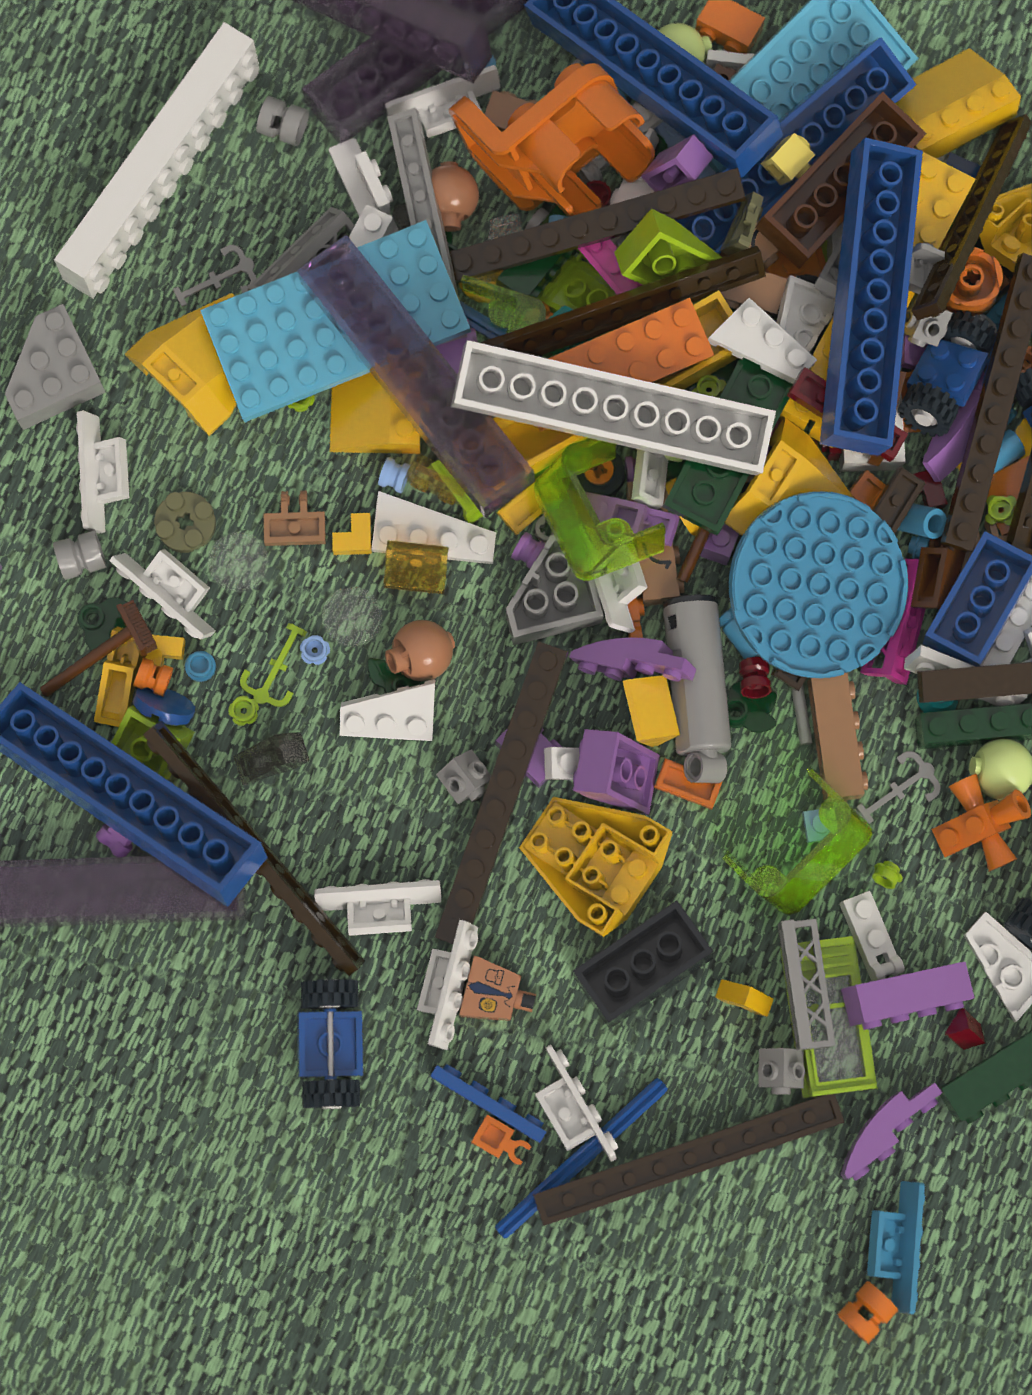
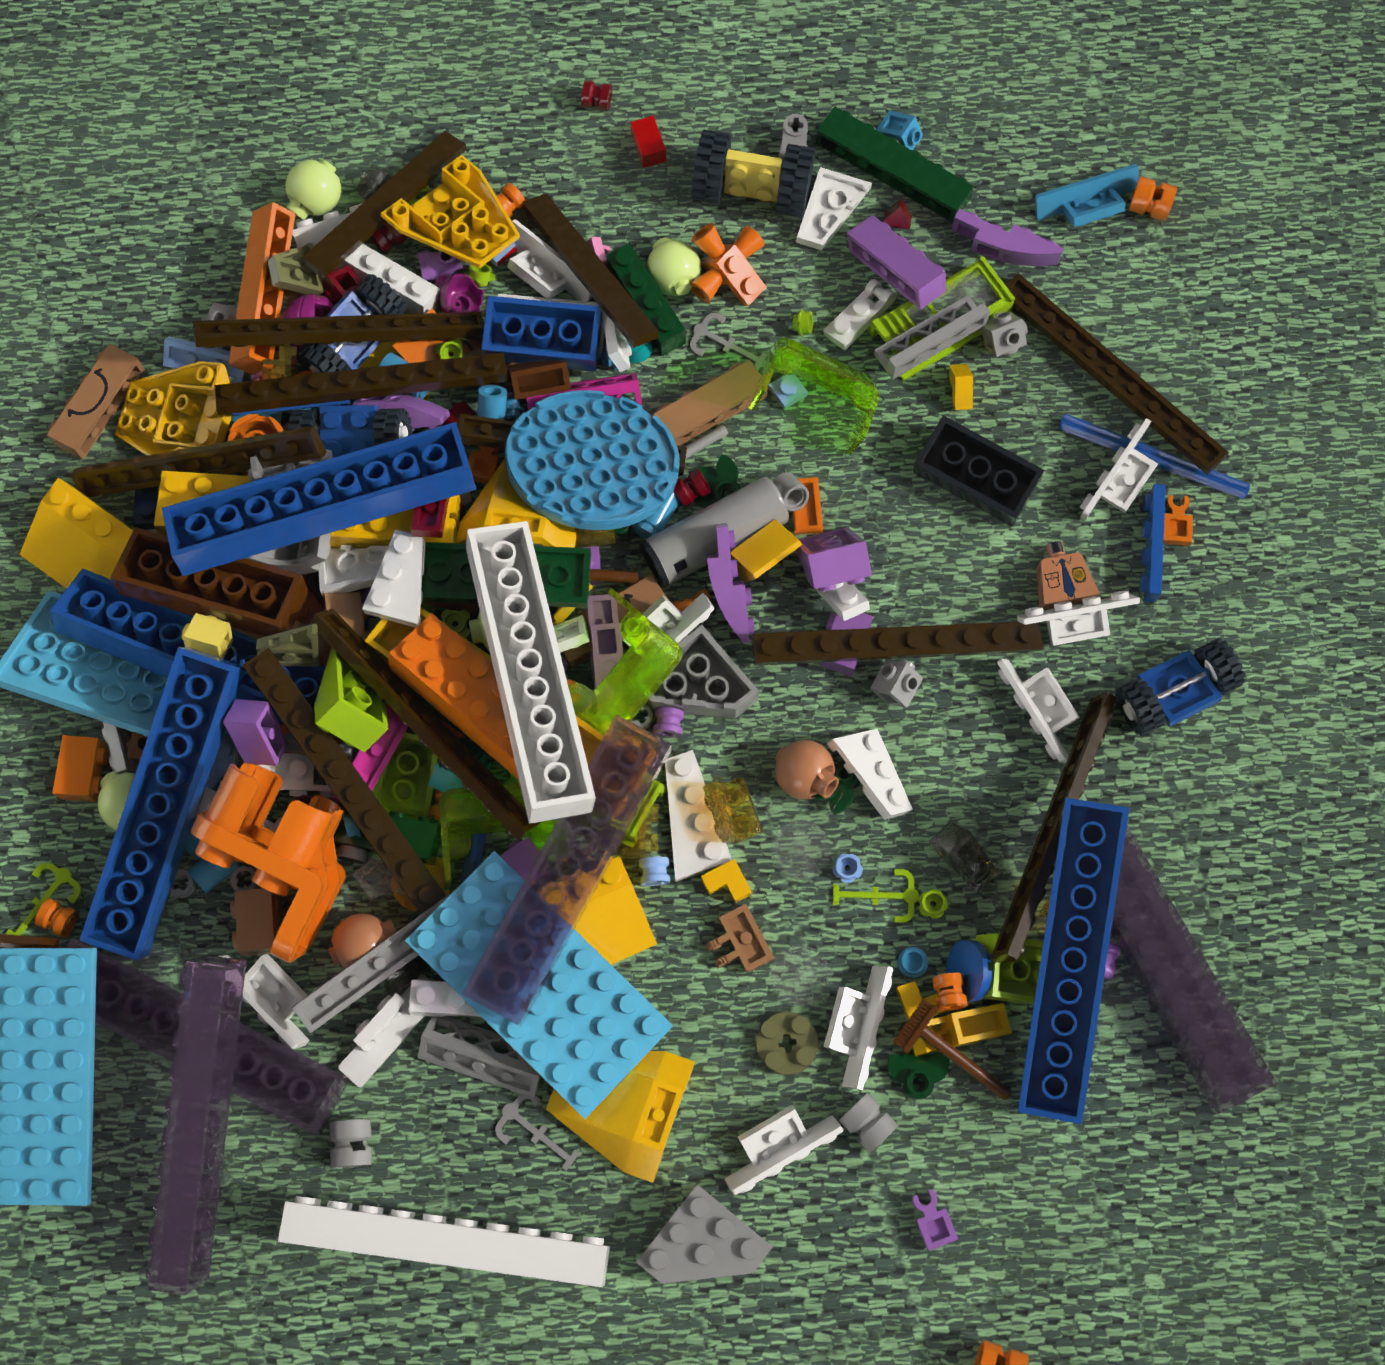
camera: 110 degrees left, 5 degrees down
(596, 859) = (911, 549): yellow wedge -> none

